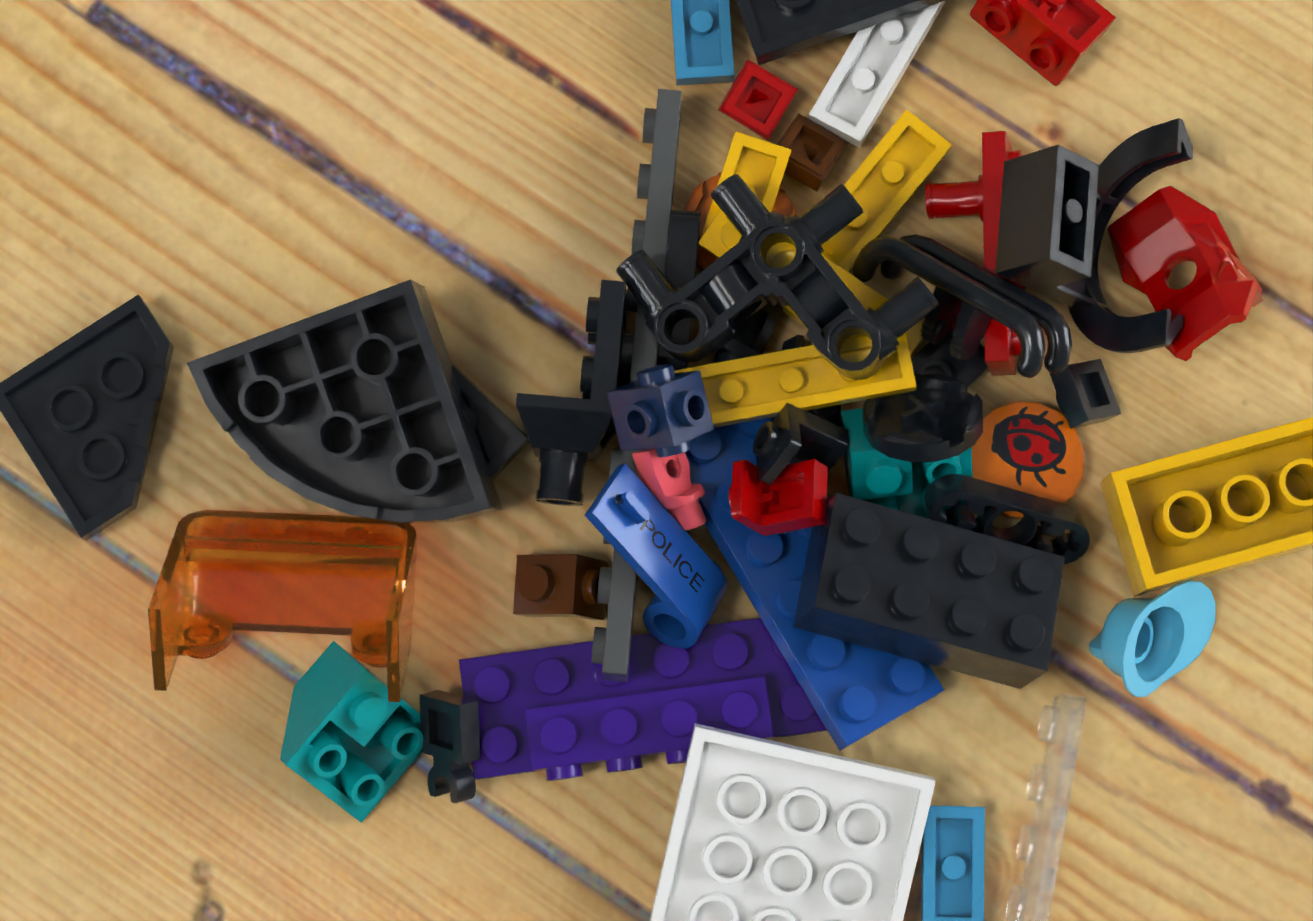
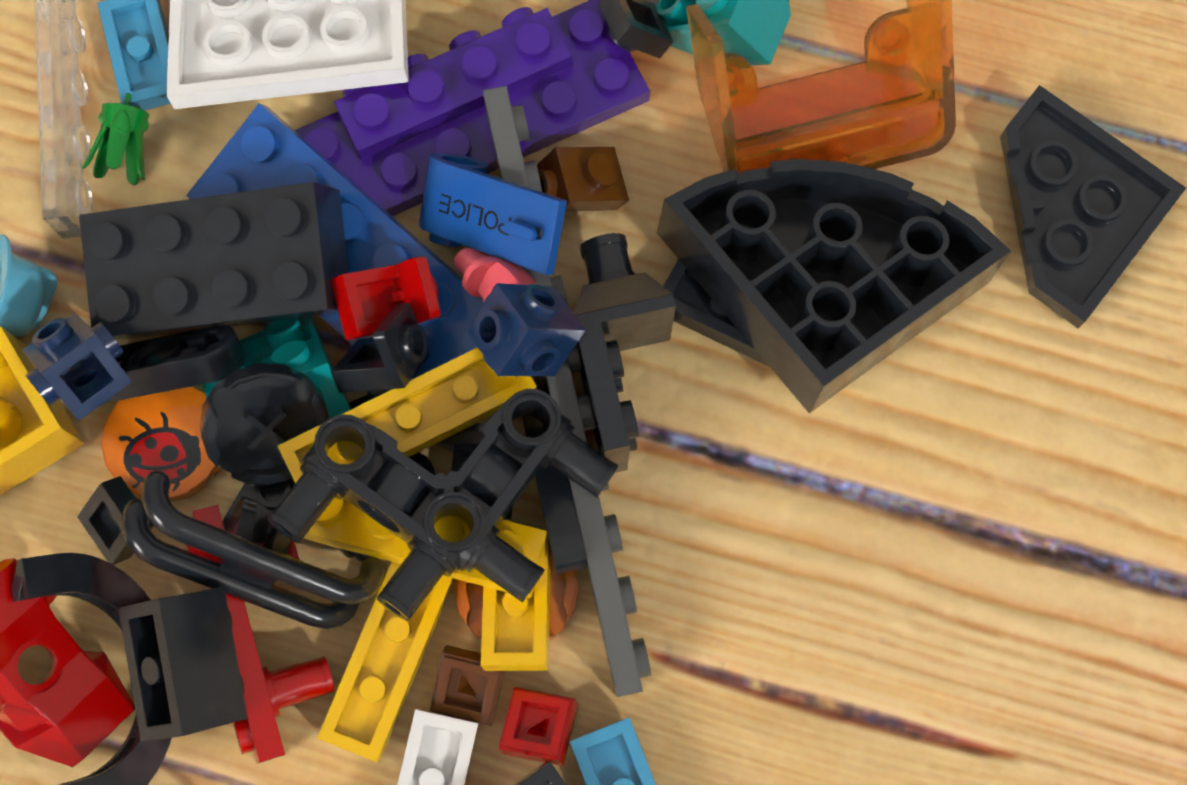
camera: 160 degrees right, 5 degrees down
(985, 780) = (119, 132): none -> green piece
(1083, 532) = (75, 364): none -> dark blue brick

